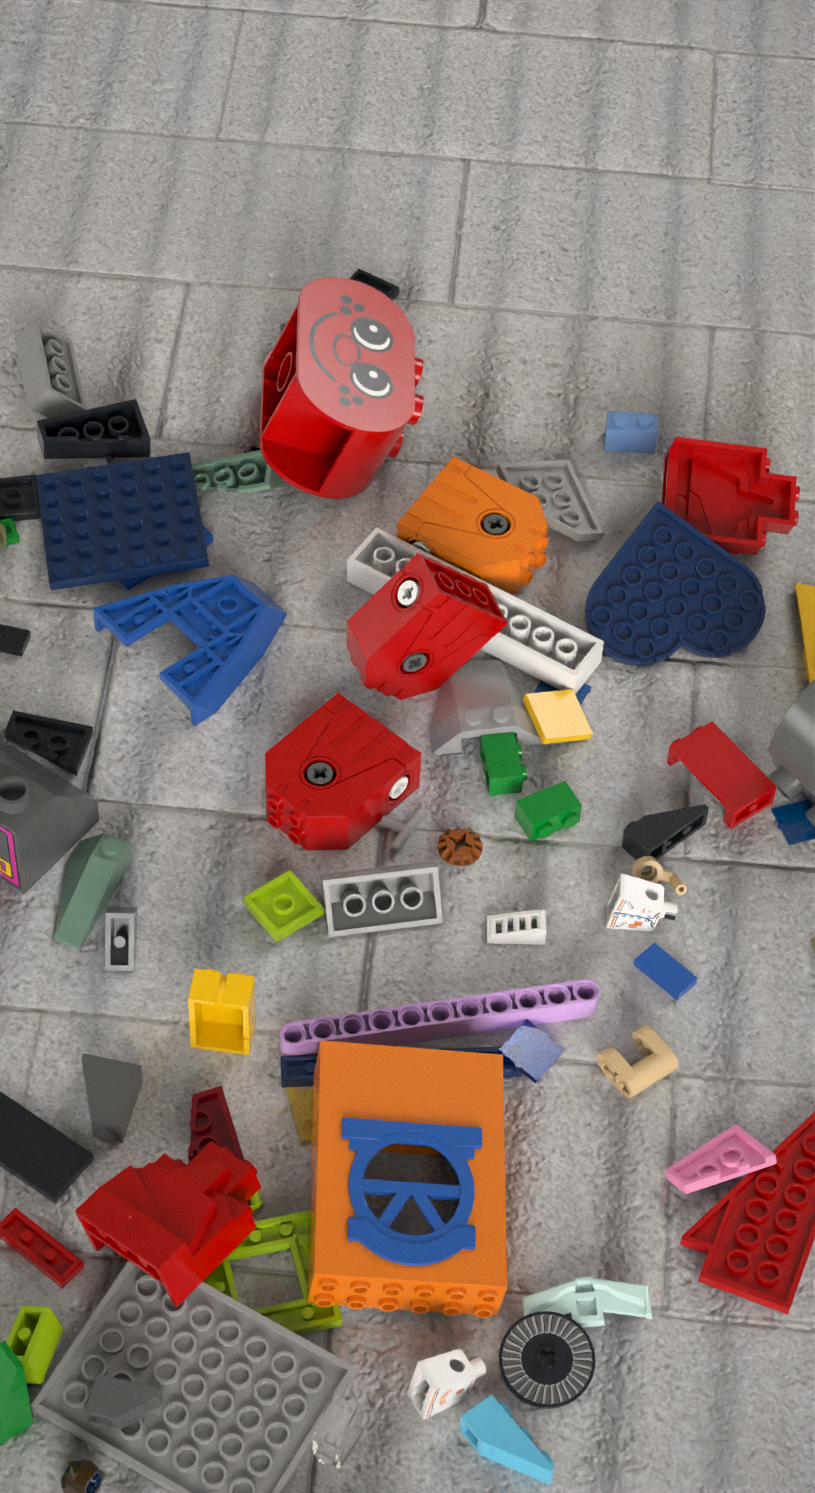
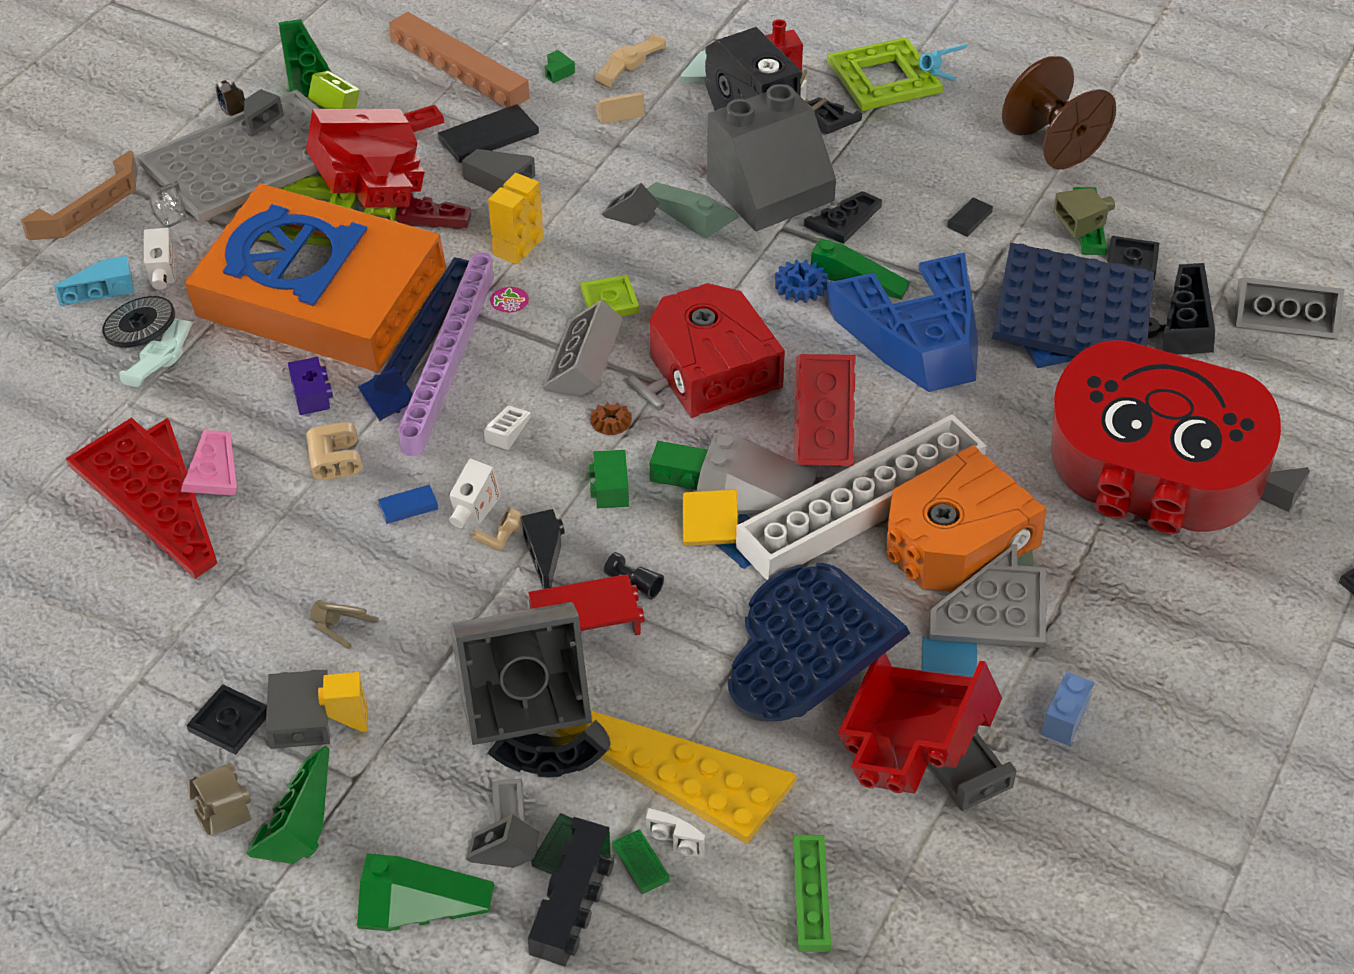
camera: 115 degrees right, 5 degrees down
(131, 713) = (844, 263): none -> green wedge
(180, 745) = (801, 281): none -> blue gear
(318, 1004) = (509, 299): none -> sticker
(559, 1127) = (309, 385): none -> dark purple brick
(616, 523) = (949, 657): none -> dark azure sticker
(657, 746) = (647, 581): none -> black piece

